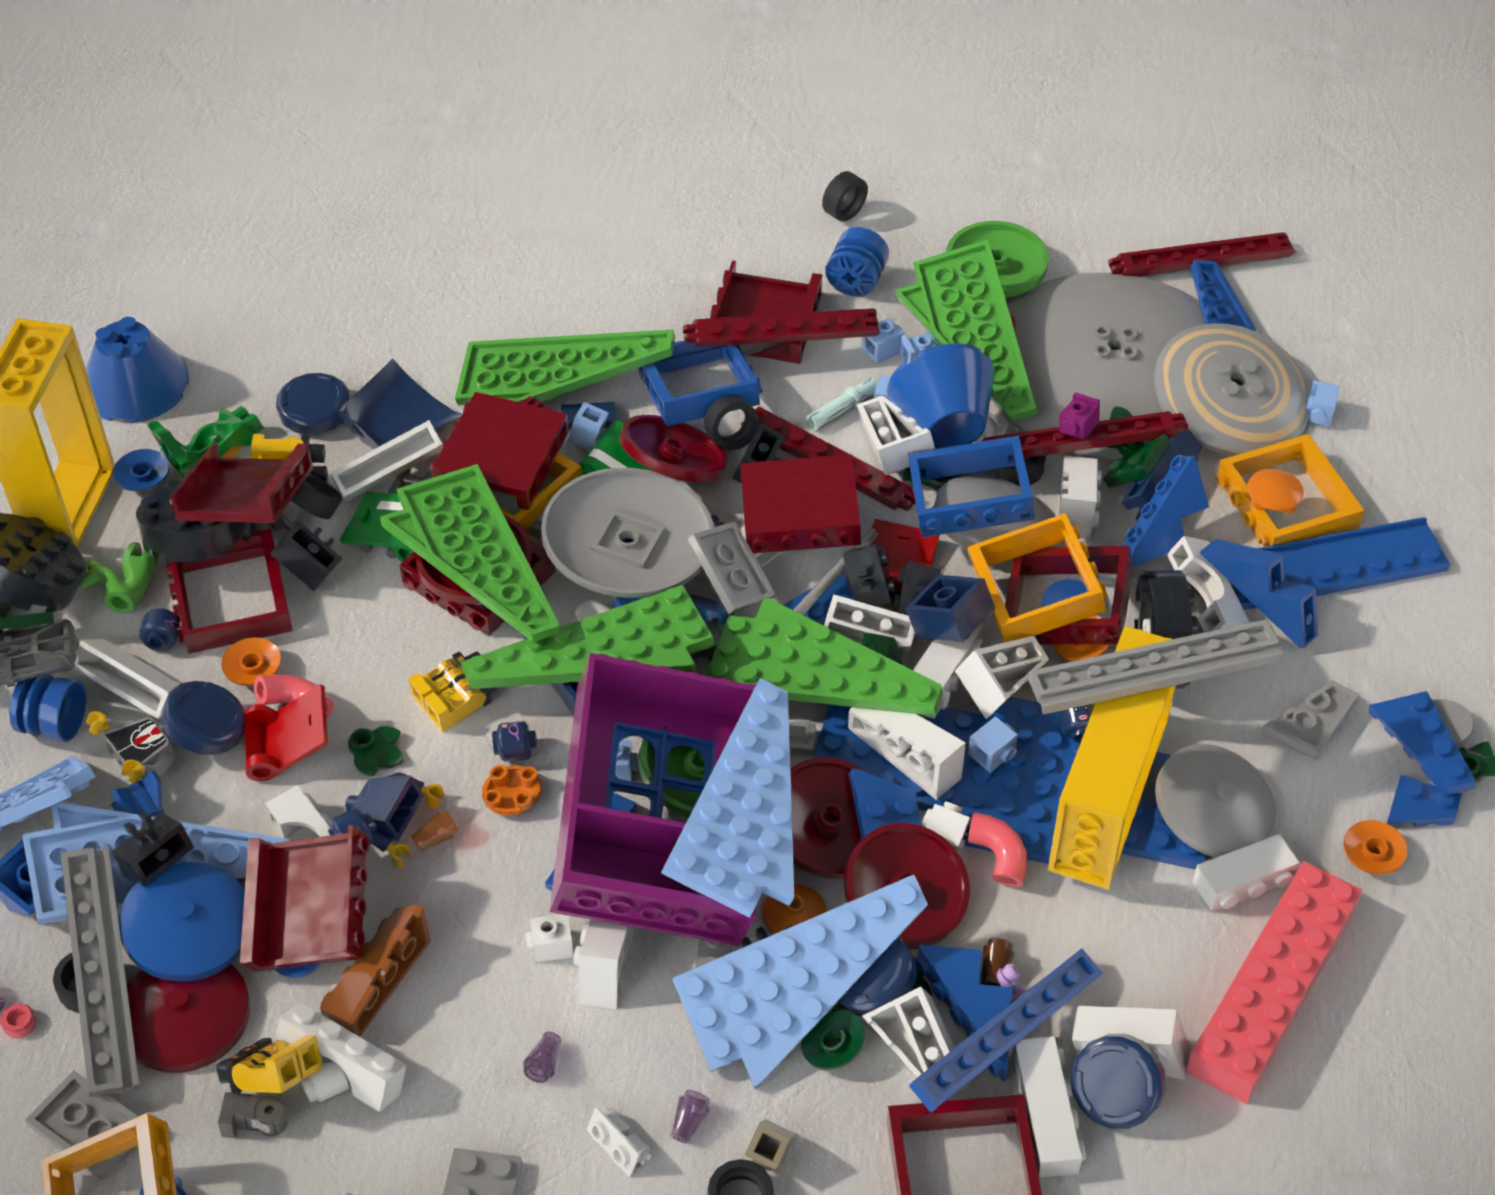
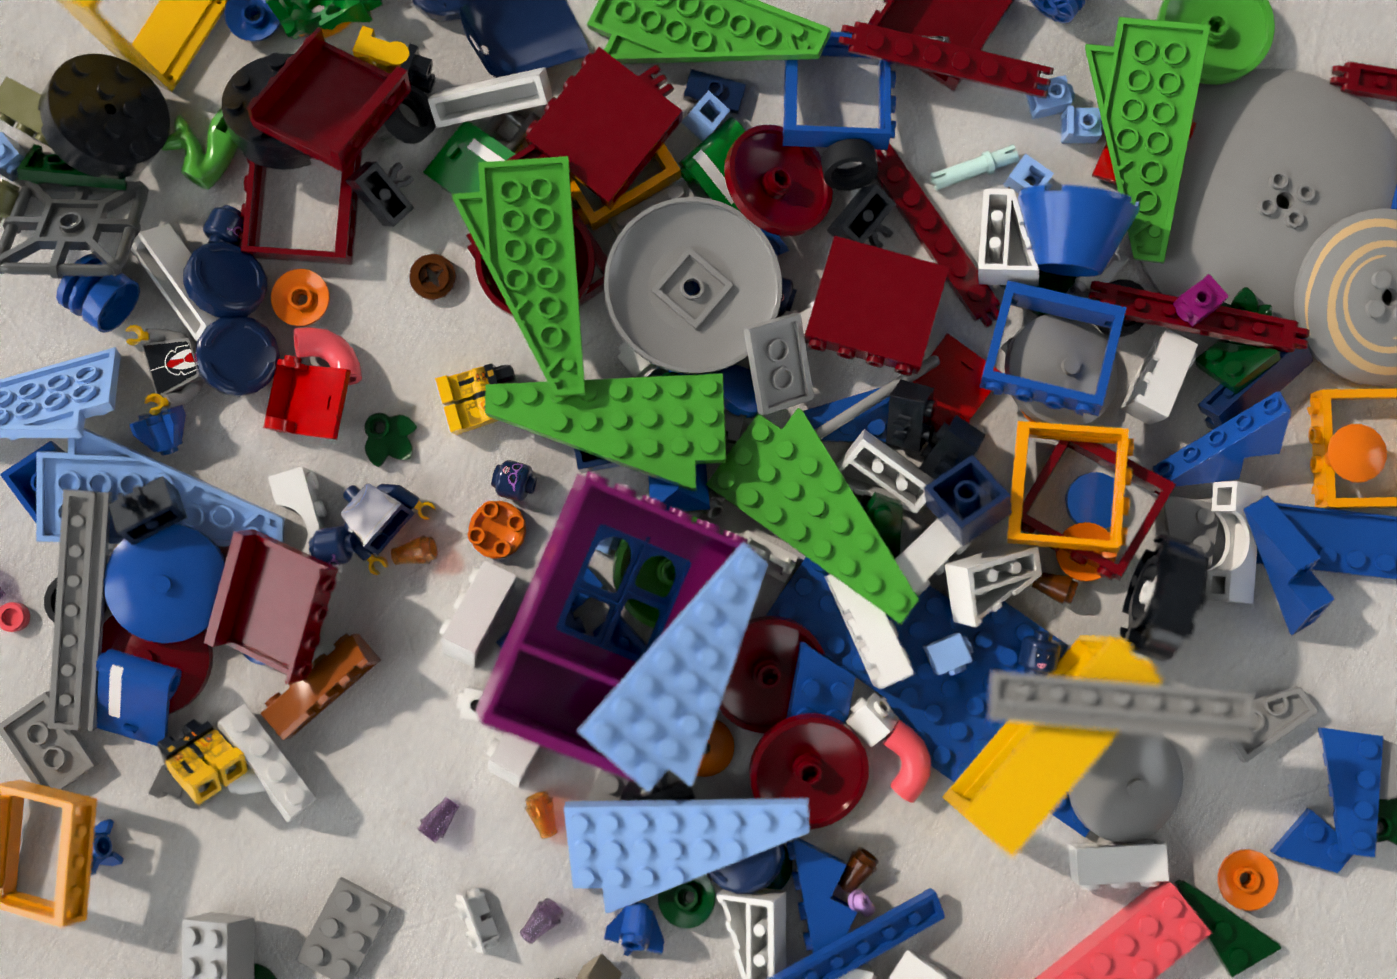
camera: 20 degrees right, 35 degrees up
(174, 659) = (224, 280): none -> dark blue piece
(180, 1036) = (134, 696): none -> blue door
(374, 605) = (419, 275): none -> reddish brown gear
(516, 861) = (476, 612): none -> white wedge
(649, 1014) = (541, 812): none -> clear orange cone
(793, 1084) = (636, 928): none -> blue brick
(1393, 906) = (1232, 939): none -> dark green wing

